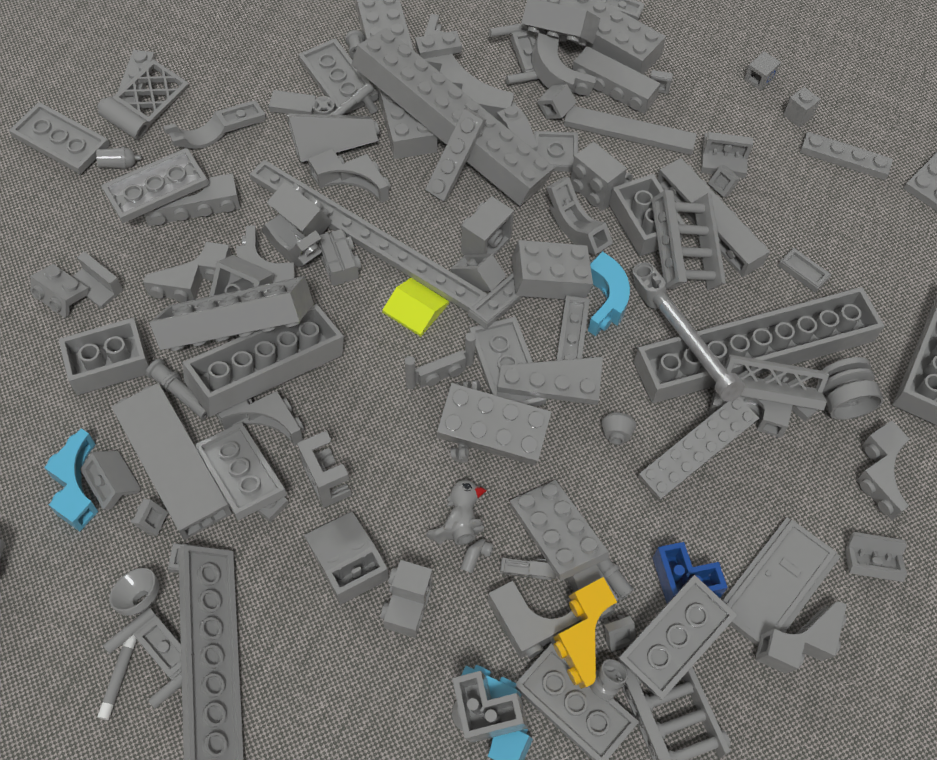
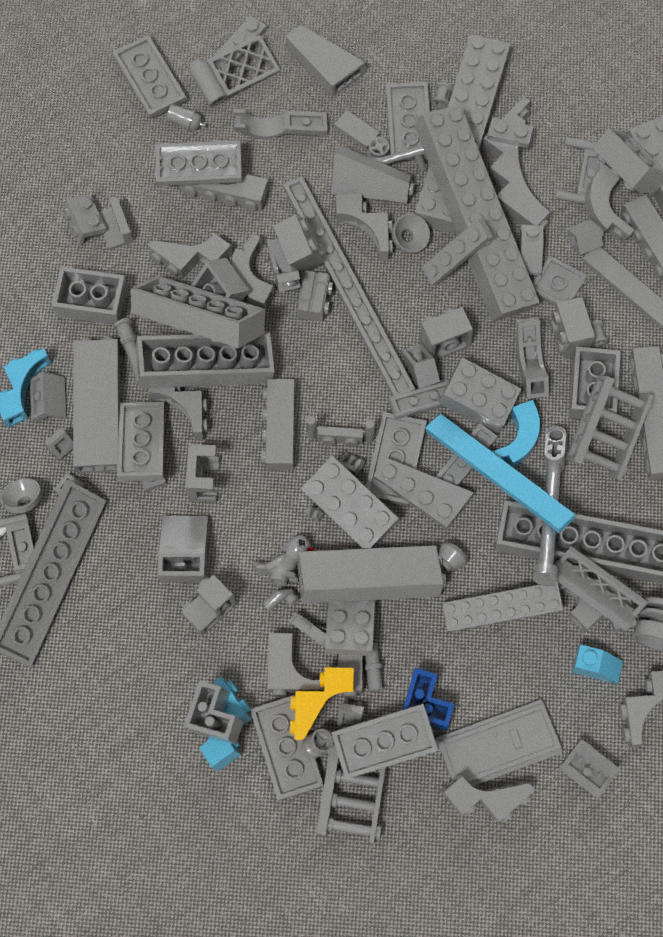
camera: 35 degrees right, 10 degrees up
(227, 58) = (324, 60): none -> light grey slope
(375, 387) = (280, 424): none -> light grey brick
(402, 159) = (418, 229): none -> light grey piece
(414, 306) = (353, 369): neon yellow slope -> none
(553, 481) = (370, 574): none -> light grey brick
(620, 324) = (500, 473): none -> medium azure tile
(812, 457) = (597, 664): none -> medium azure slope

